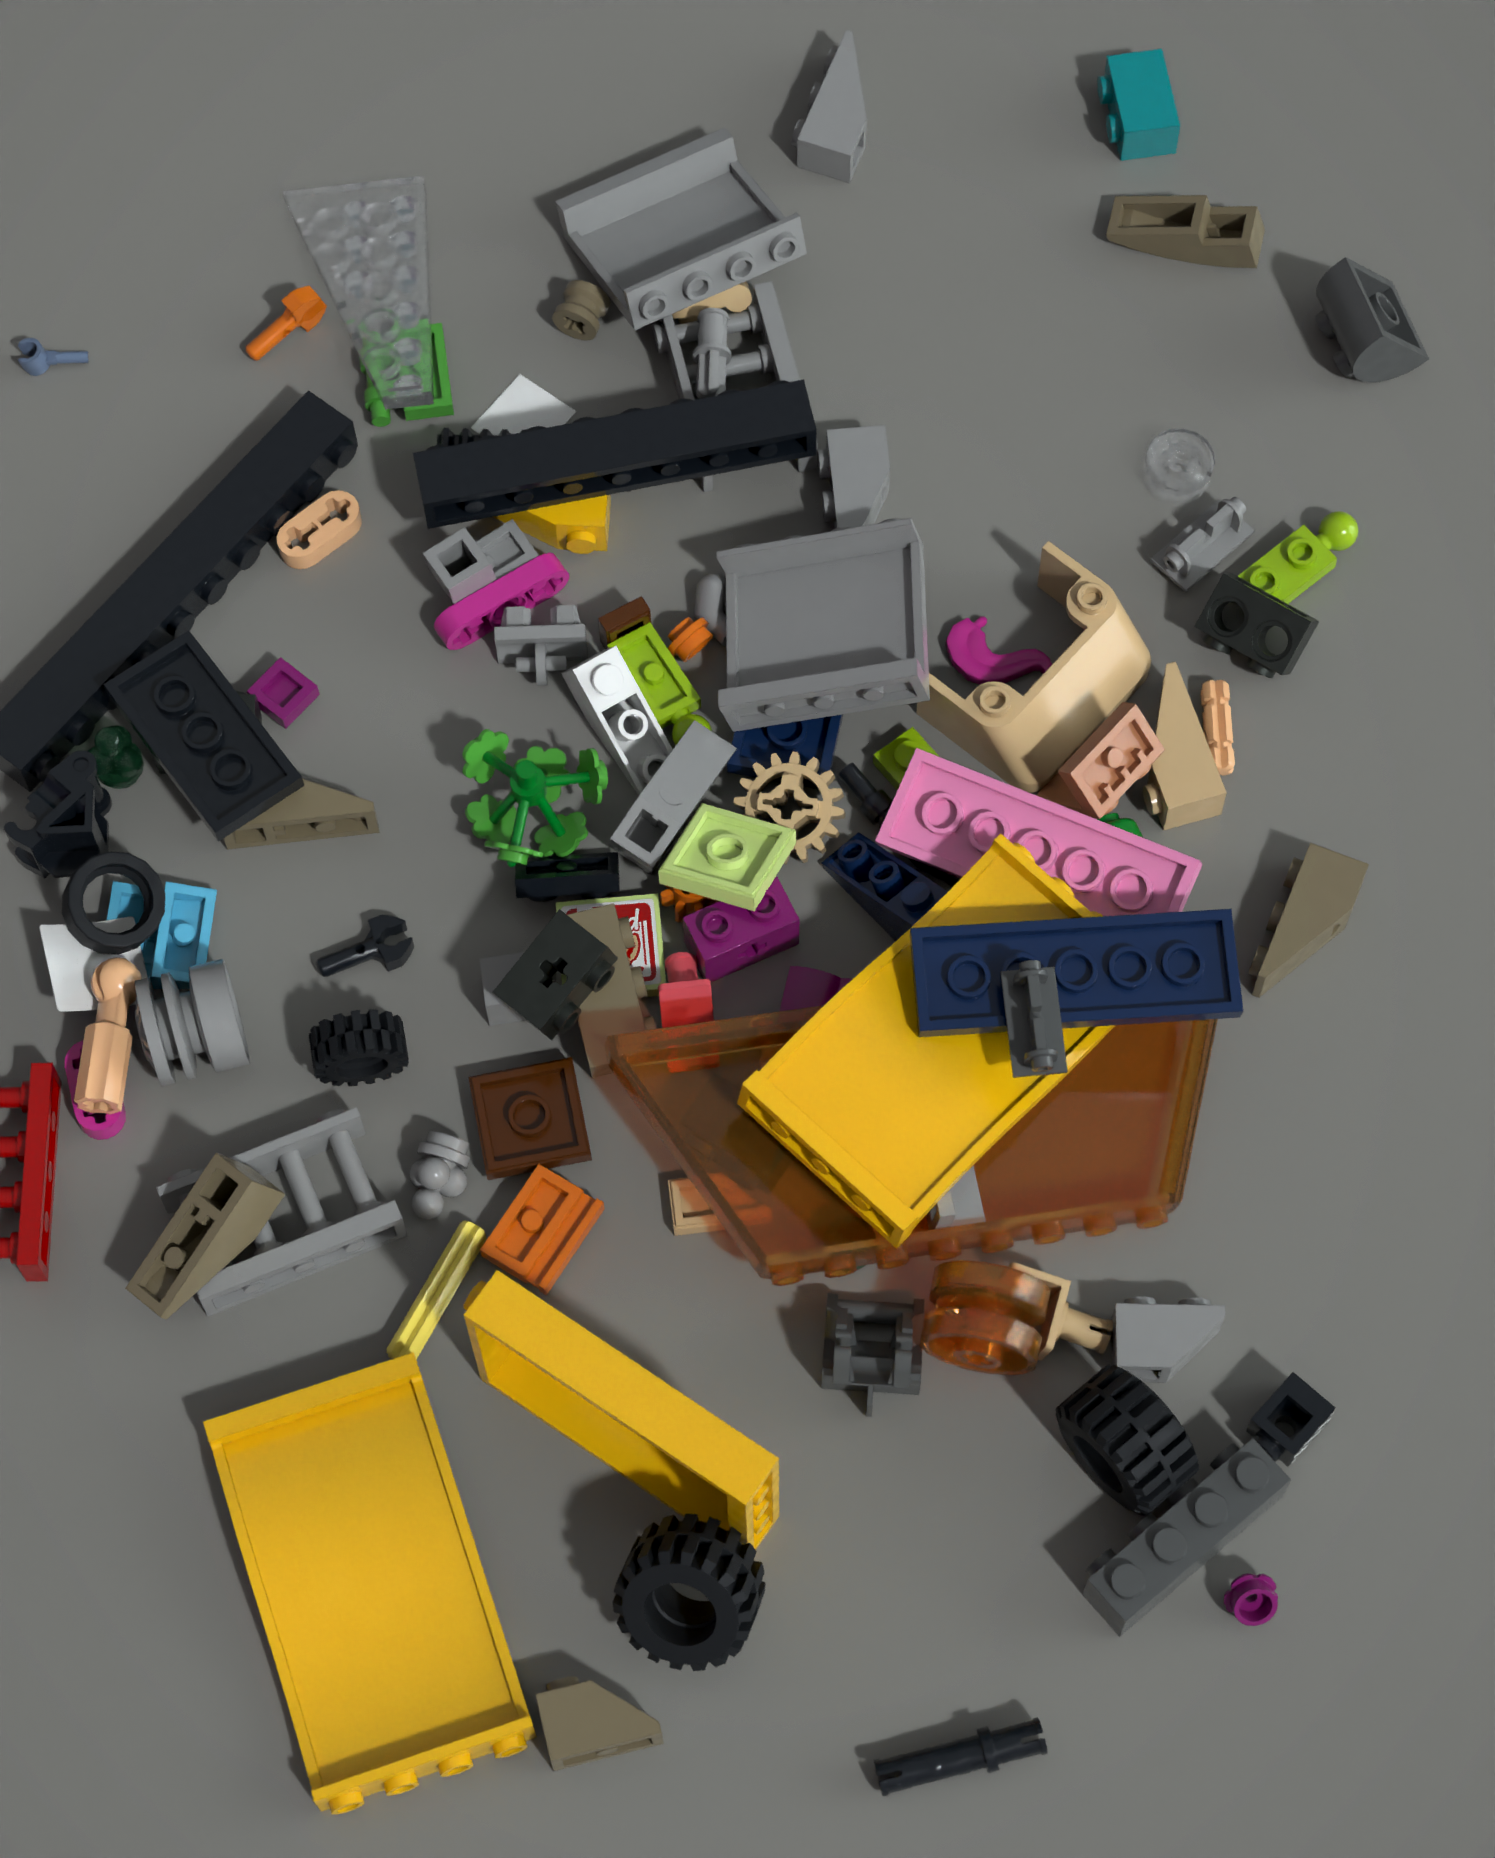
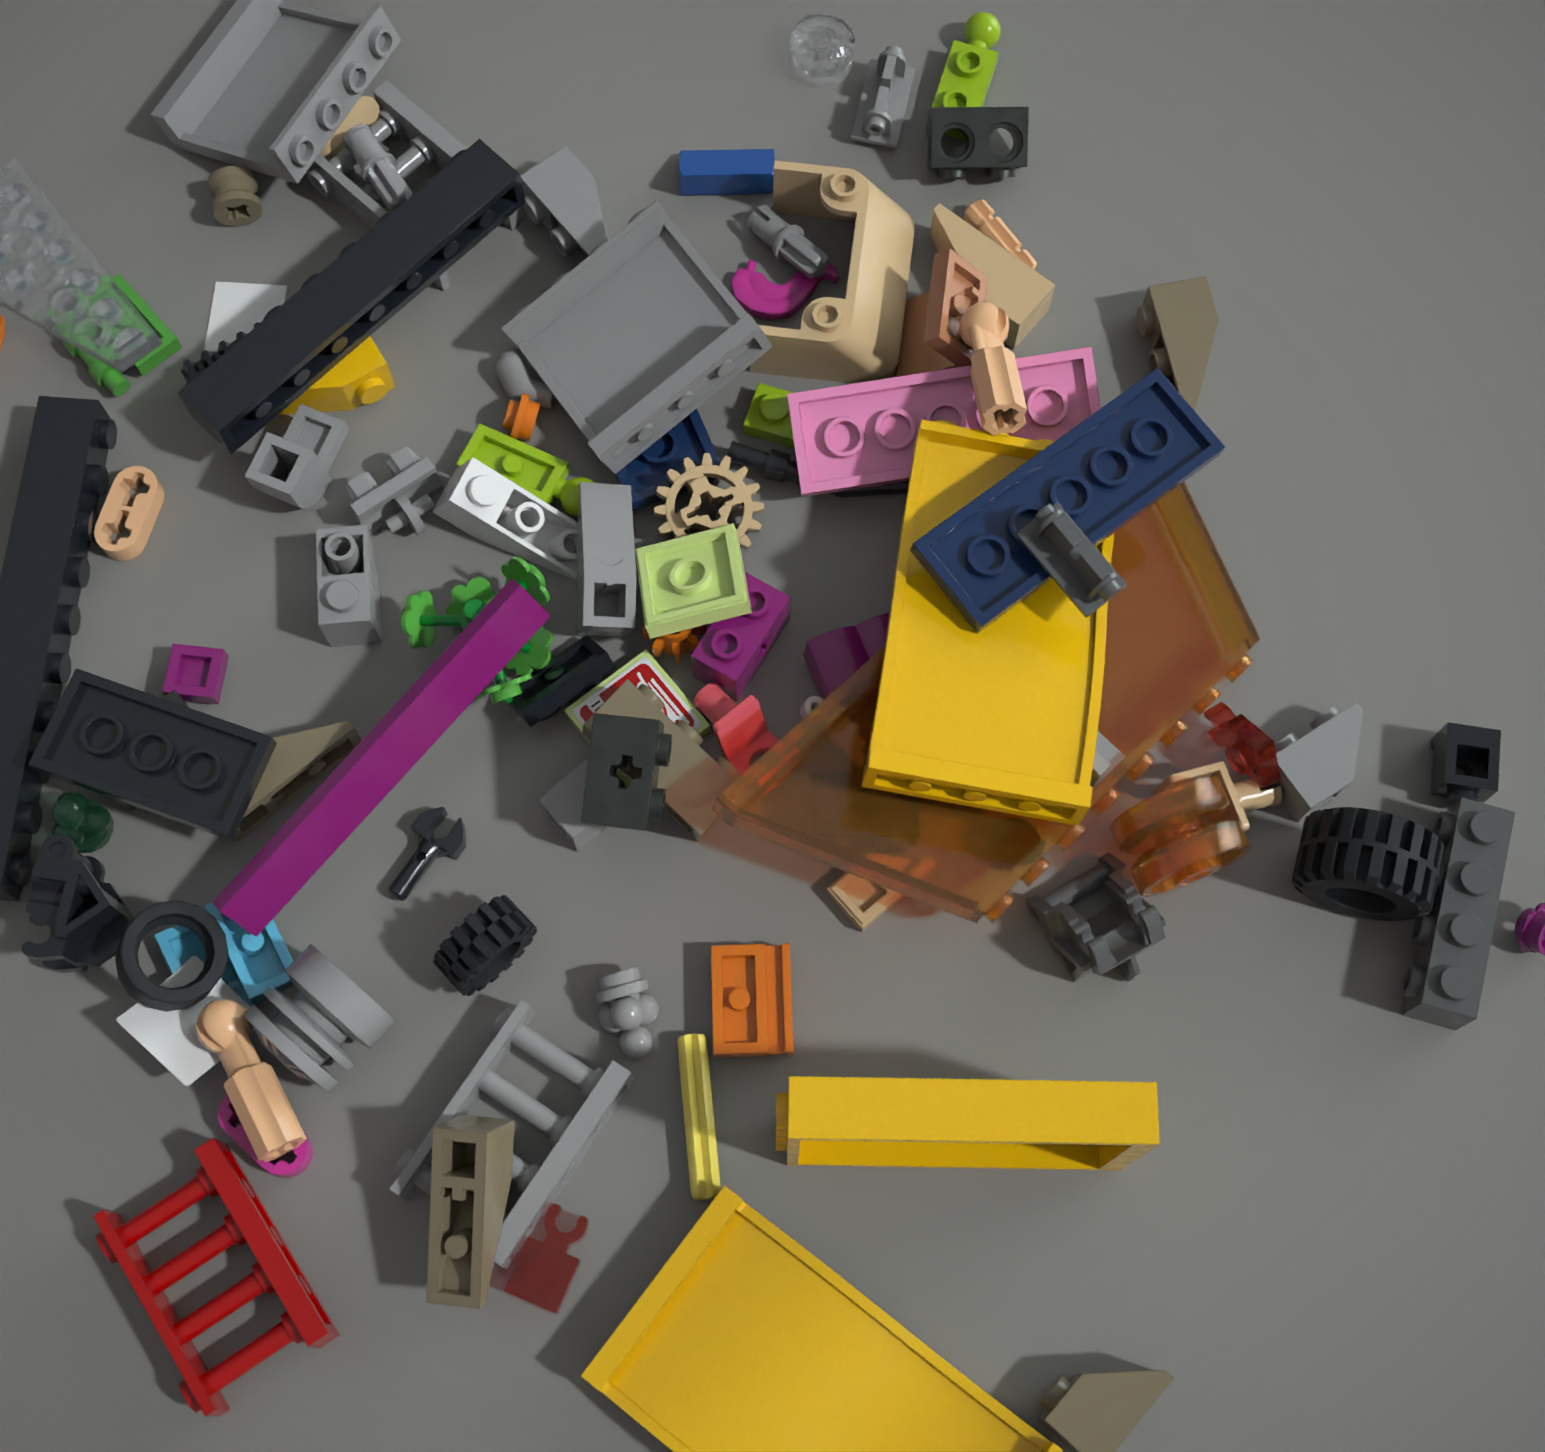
camera: 35 degrees left, 5 degrees up
(235, 1333) = (545, 1269): none -> clear red plate
(378, 846) = (381, 759): none -> magenta tile
(448, 694) = (347, 586): none -> light grey slope
(484, 609) = (328, 492): dark pink beam -> none
(530, 1118) = (672, 910): reddish brown plate -> none
(623, 621) = (457, 436): reddish brown tile -> none
(677, 1626) = (1114, 1239): black tyre -> none
(882, 884) = (838, 529): dark blue slope -> none
(961, 1756) = (1428, 1203): black pin -> none
(1015, 524) = (726, 172): none -> blue slope
(1024, 620) = (788, 242): none -> light grey axle
(1095, 827) = (993, 369): none -> light nougat piece
(1100, 1284) = (1246, 745): none -> clear red plate

